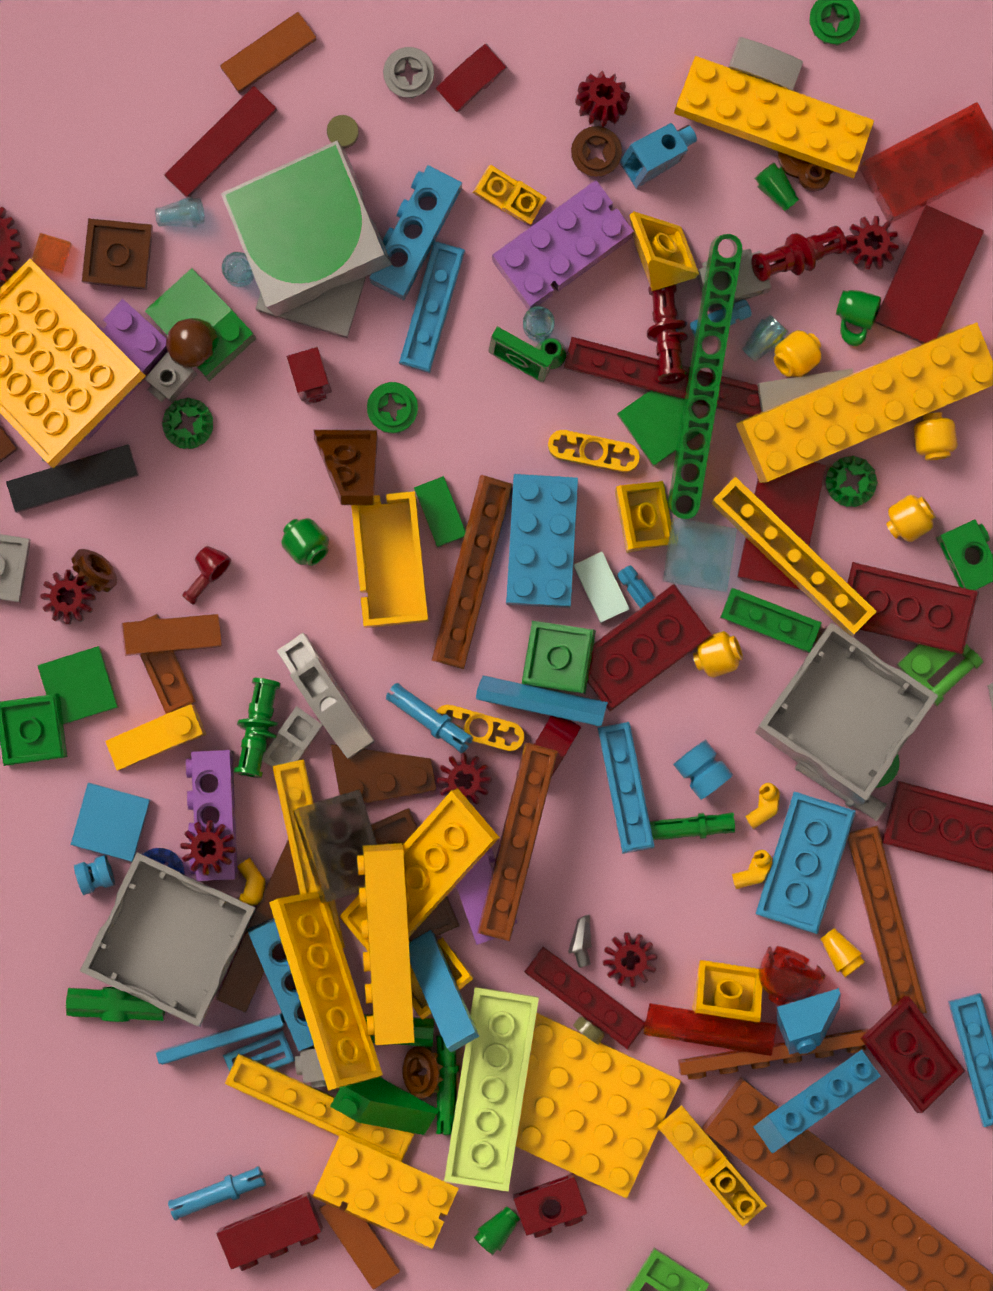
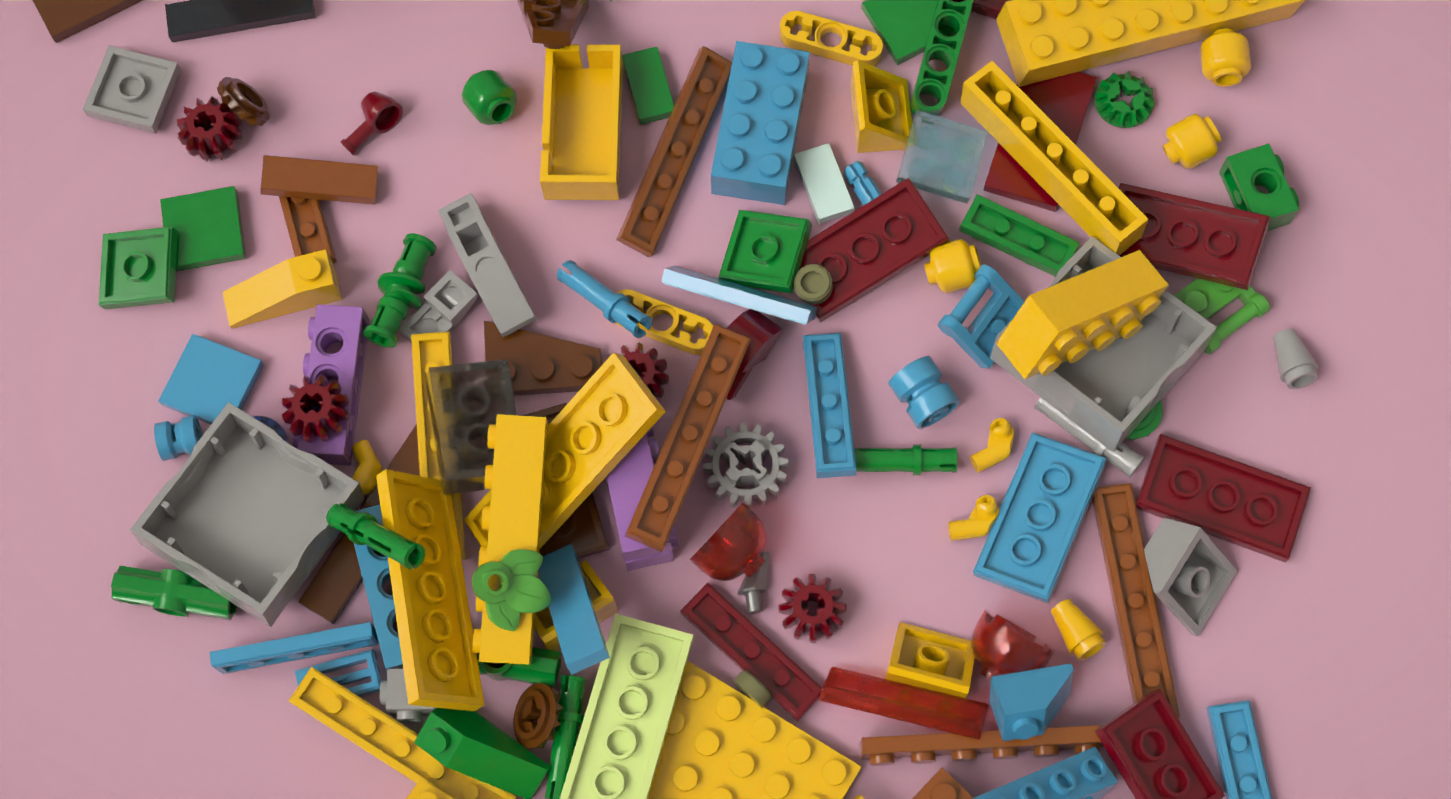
camera: 10 degrees right, 15 degrees down
(270, 952) = (364, 529): none -> green pin
(399, 988) = (517, 590): none -> bright green plate
(554, 859) = (756, 453): none -> light grey gear
(560, 919) = (733, 547): none -> clear red cylinder
(602, 684) = (813, 284): none -> olive tile
(755, 701) = (991, 320): none -> dark azure plate
(828, 706) = (1082, 314): none -> yellow piece
(925, 898) = (1187, 572): none -> light grey slope

